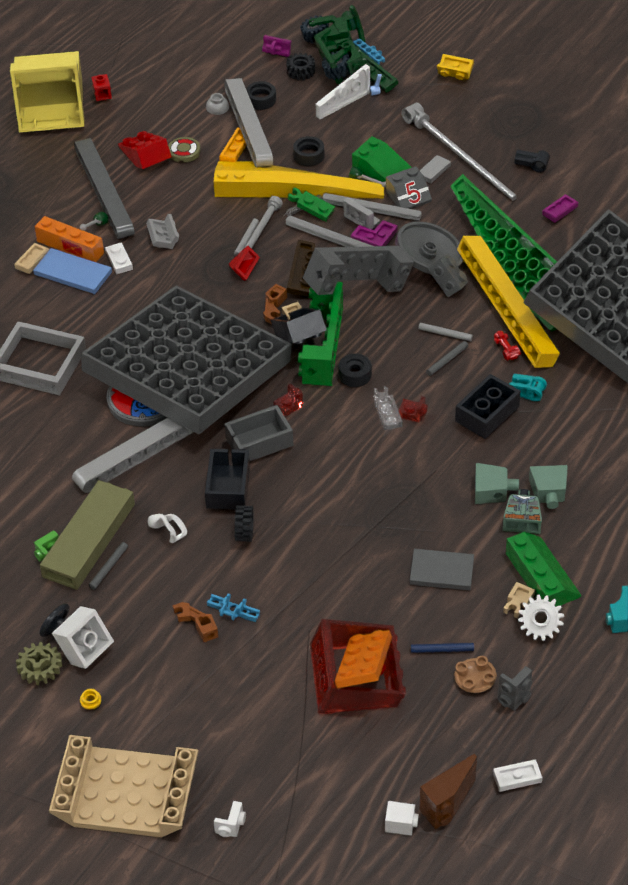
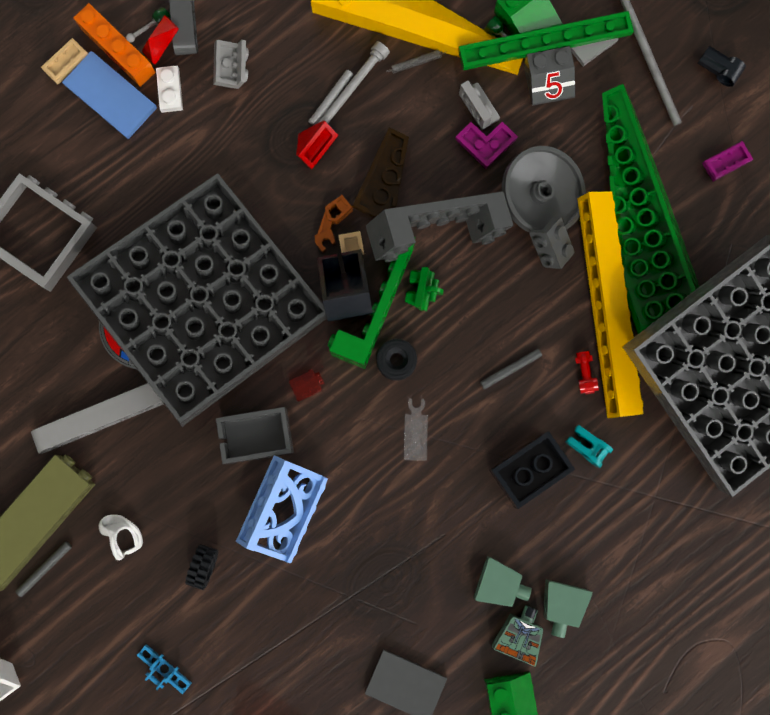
camera: 15 degrees right, 35 degrees up
(105, 226) = (160, 39): none -> red slope
(207, 631) = (114, 667): dark orange piece -> none
(227, 483) = (201, 494): black piece -> none
(294, 444) = (292, 528): none -> light blue fence
(312, 204) = (425, 67): green plate -> none
(324, 233) = (434, 126): light grey axle -> none
(361, 324) = (426, 290): none -> green hips
(376, 207) = (499, 90): light grey axle -> none
(378, 174) = (545, 39): none -> green plate
(413, 410) = (445, 439): clear red bracket -> none
(446, 332) = (521, 325): light grey bar -> none

